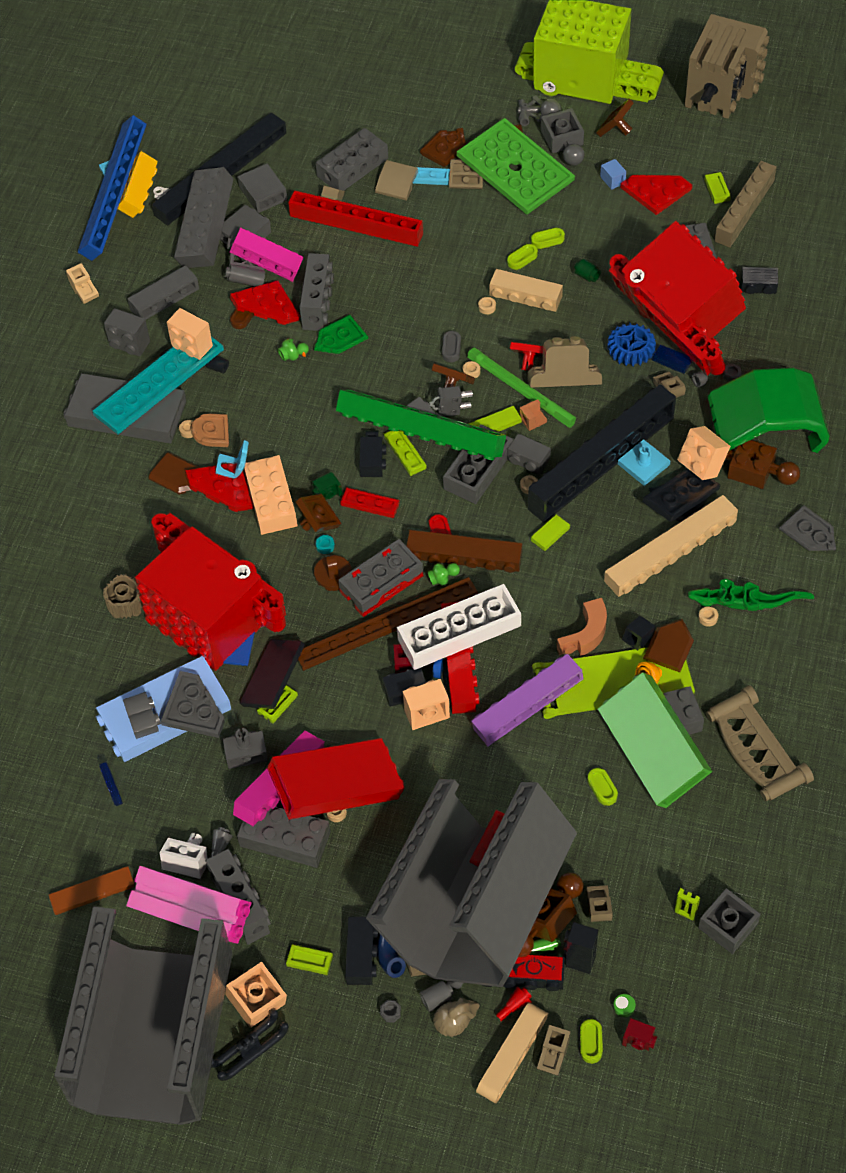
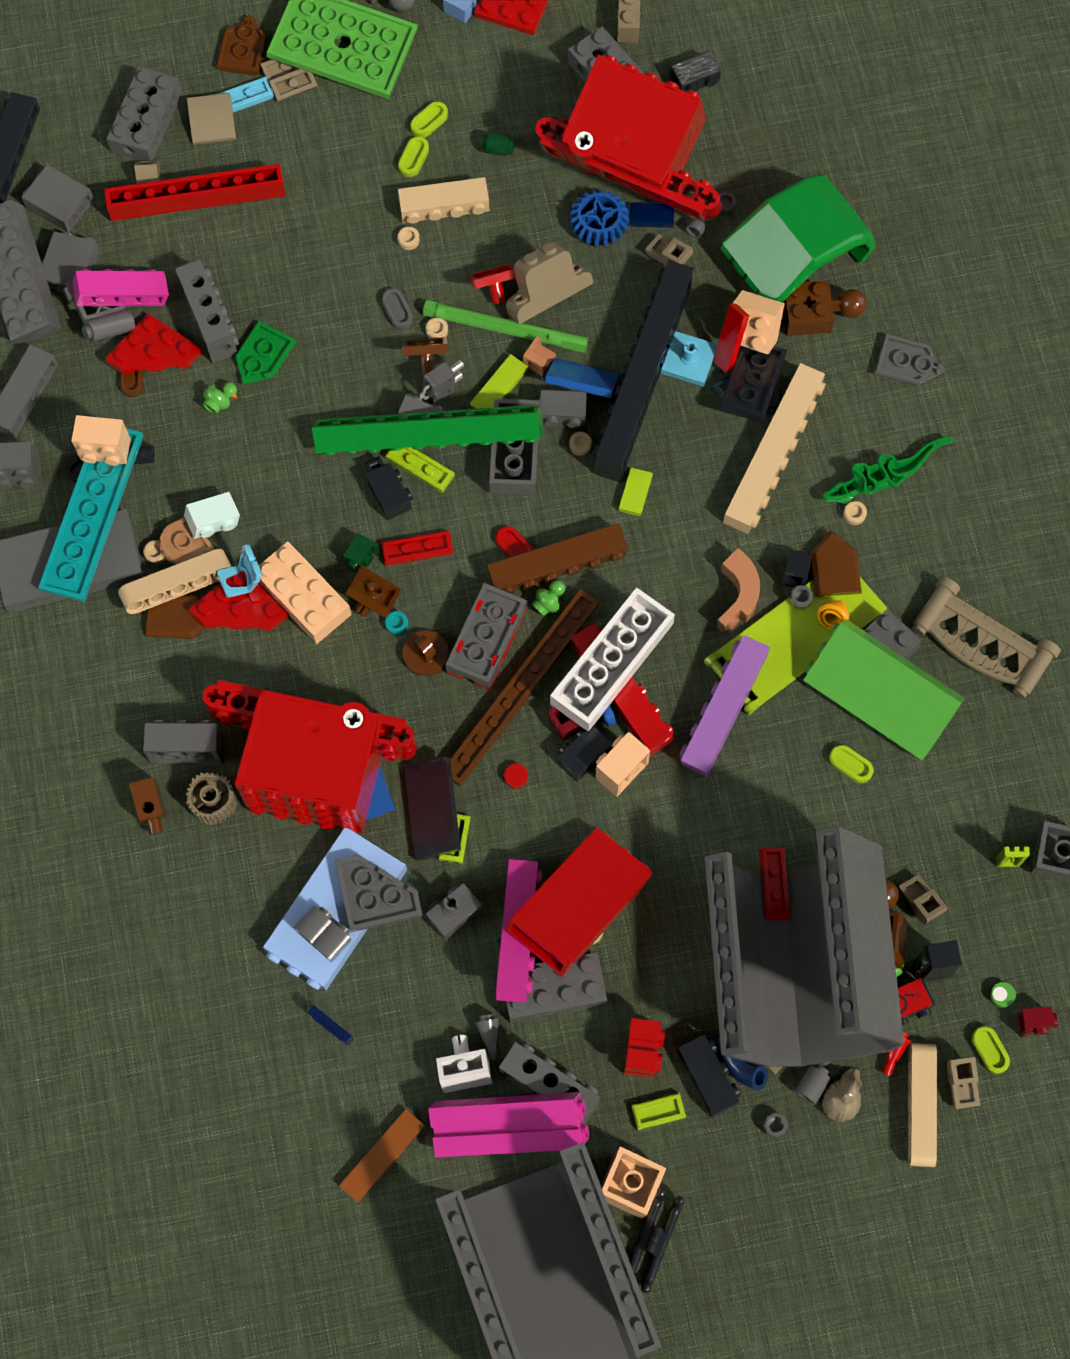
camera: 30 degrees left, 15 degrees up
(80, 579) = (148, 793): none -> reddish brown torso
(124, 550) = (183, 742): none -> dark grey brick
(186, 449) = (173, 581): none -> tan beam
(239, 419) = (211, 515): none -> light aqua brick
(322, 904) = (642, 1048): none -> red brick
(347, 681) = (516, 776): none -> red tile
(551, 438) = (582, 378): none -> blue tile
(631, 653) = (801, 597): none -> dark grey tile
(678, 454) = (731, 338): none -> red tile

